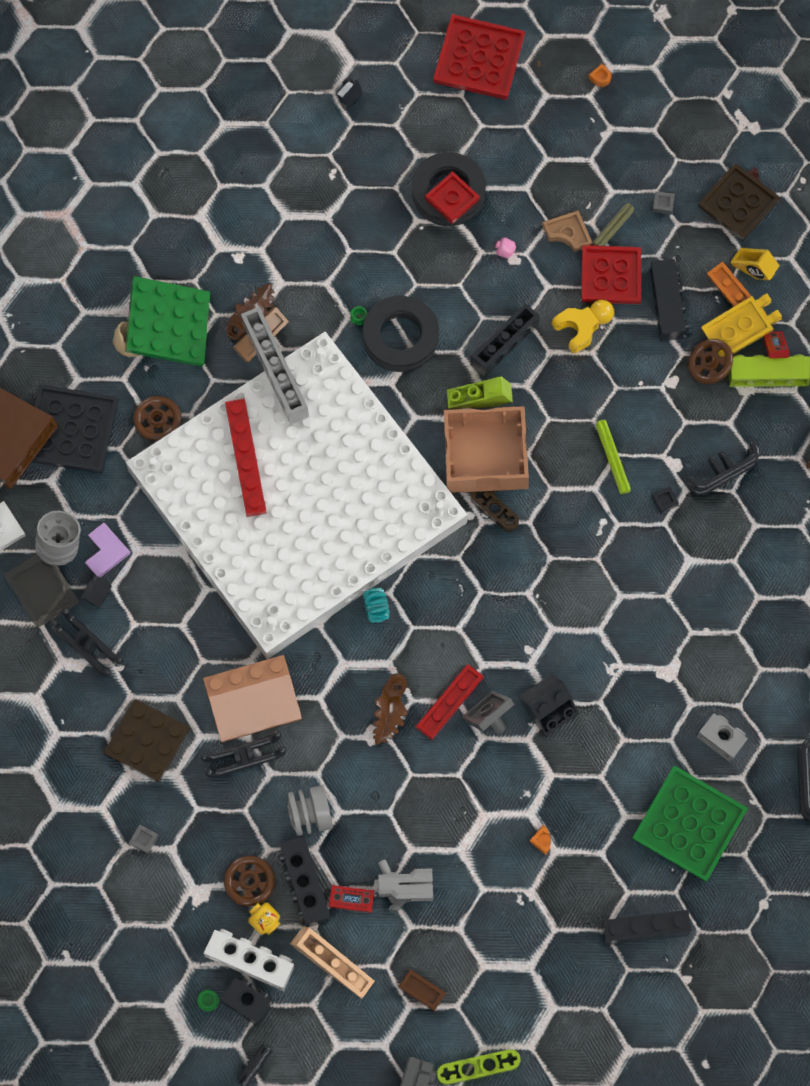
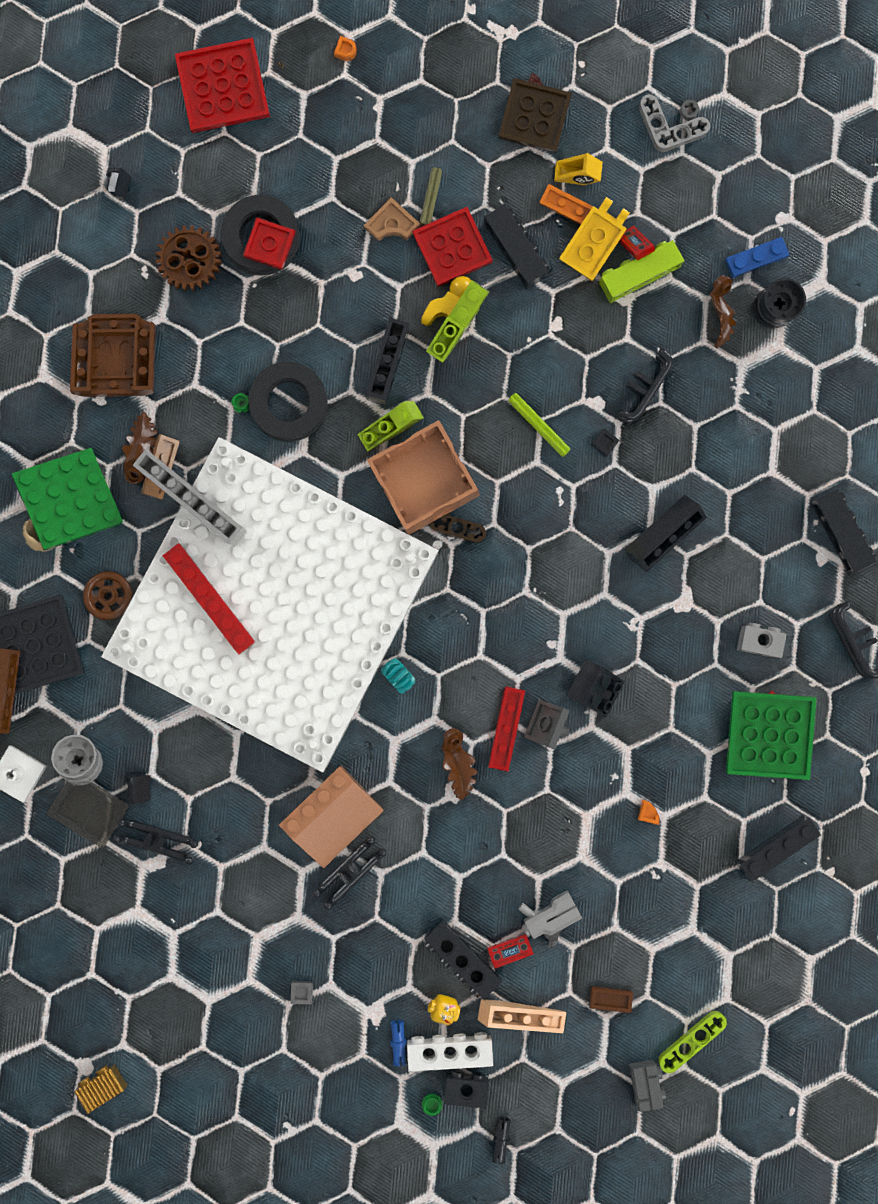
camera: 30 degrees left, 15 degrees up
(111, 551) = (132, 742): lavender tile -> none
(146, 740) = (257, 901): dark brown plate -> none
(206, 928) = (398, 1043): none -> blue pin
(266, 887) = (431, 979): reddish brown plate -> none
(269, 227) = (113, 356): none -> reddish brown wedge
(310, 810) = (435, 896): light grey wheel -> none
(363, 188) = (181, 274): none -> reddish brown gear
(505, 247) = (341, 267): bright pink piece -> none
(582, 335) = (457, 321): none -> lime slope
(663, 202) = (466, 150): flat silver plate -> none
(680, 599) = (665, 533): none -> black brick
(699, 352) = (599, 282): reddish brown plate -> none

